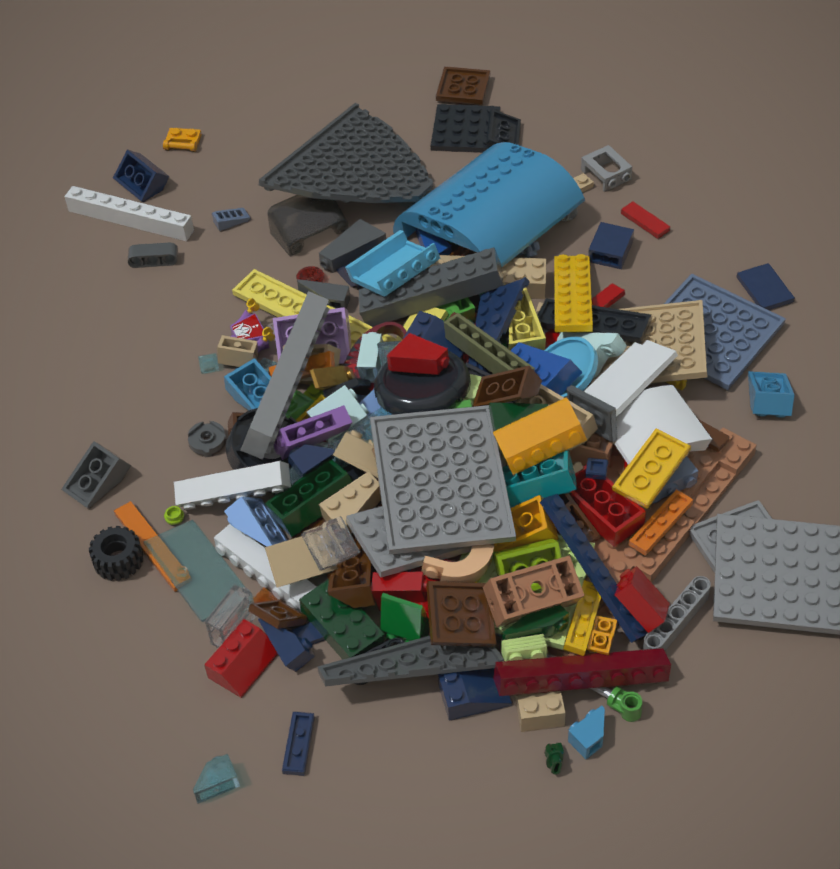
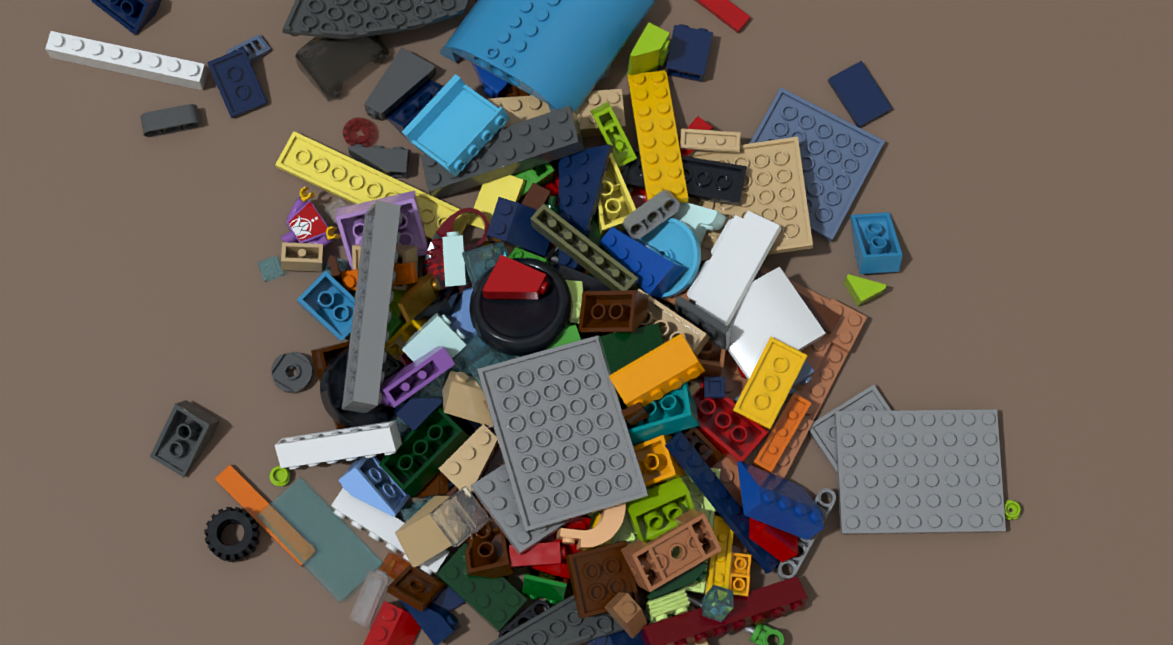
camera: 20 degrees left, 25 degrees up
(215, 233) = (237, 82): none -> dark blue tile
(264, 362) = (334, 268): none -> reddish brown tile
(480, 645) = (627, 613): none -> medium nougat slope
(514, 469) = (635, 413): none -> reddish brown tile
(527, 268) = (613, 133): none -> lime slope
(565, 332) = (661, 213): none -> light grey beam
(573, 231) = (649, 51): none -> lime slope
(574, 647) = (717, 603): none -> clear light blue brick
(620, 298) = (710, 140): none -> tan tile
(649, 572) = (778, 502): none -> blue slope
(756, 426) = (862, 289): none -> lime slope

